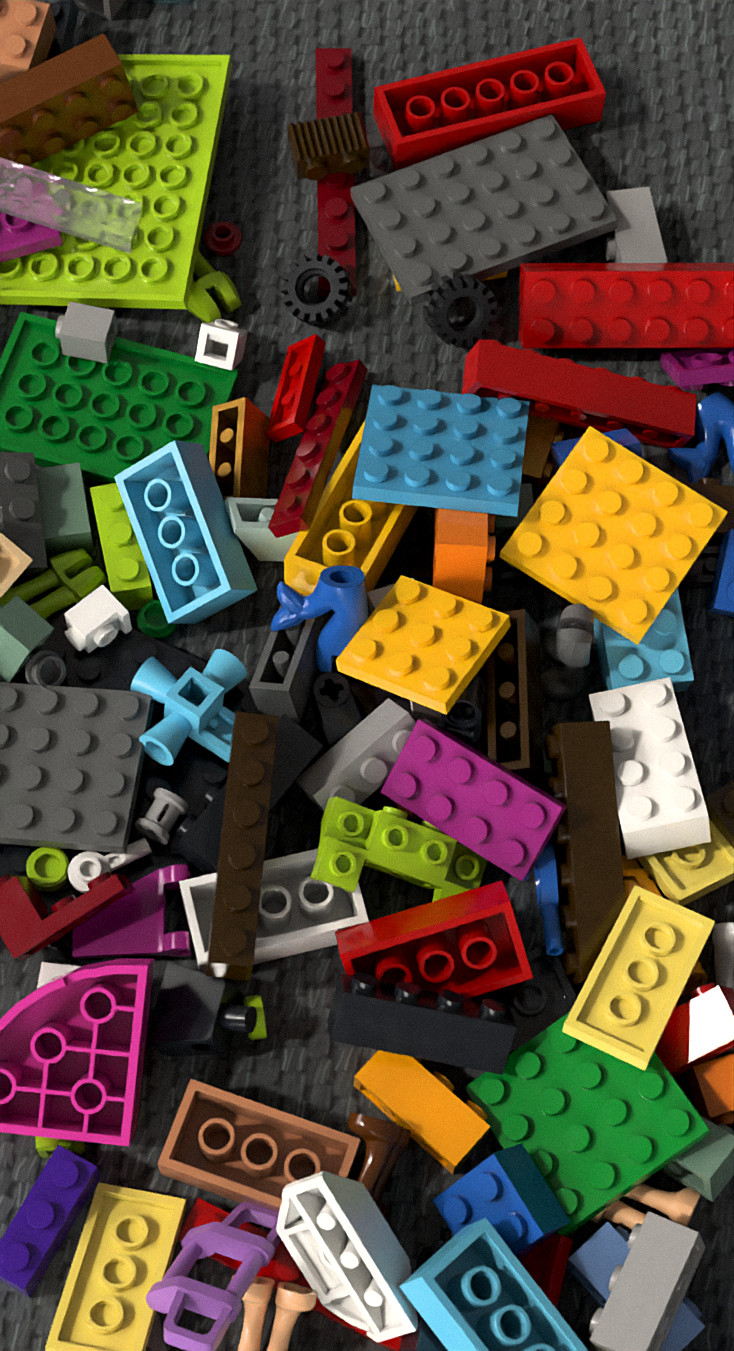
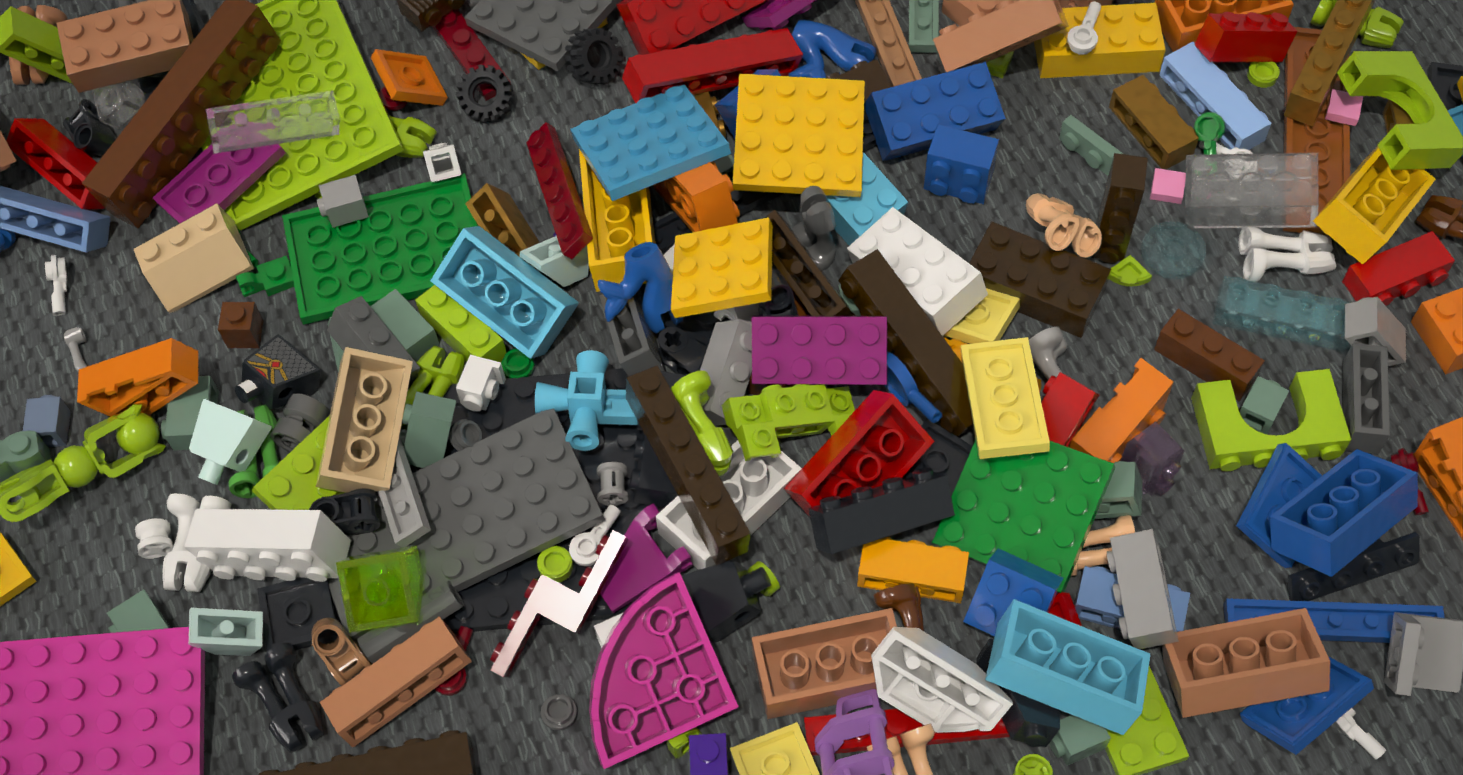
camera: 25 degrees left, 5 degrees down
(248, 226) = (409, 77): none -> orange plate
(284, 839) = (692, 396): none -> lime piece
(296, 388) = (514, 164): red plate -> none

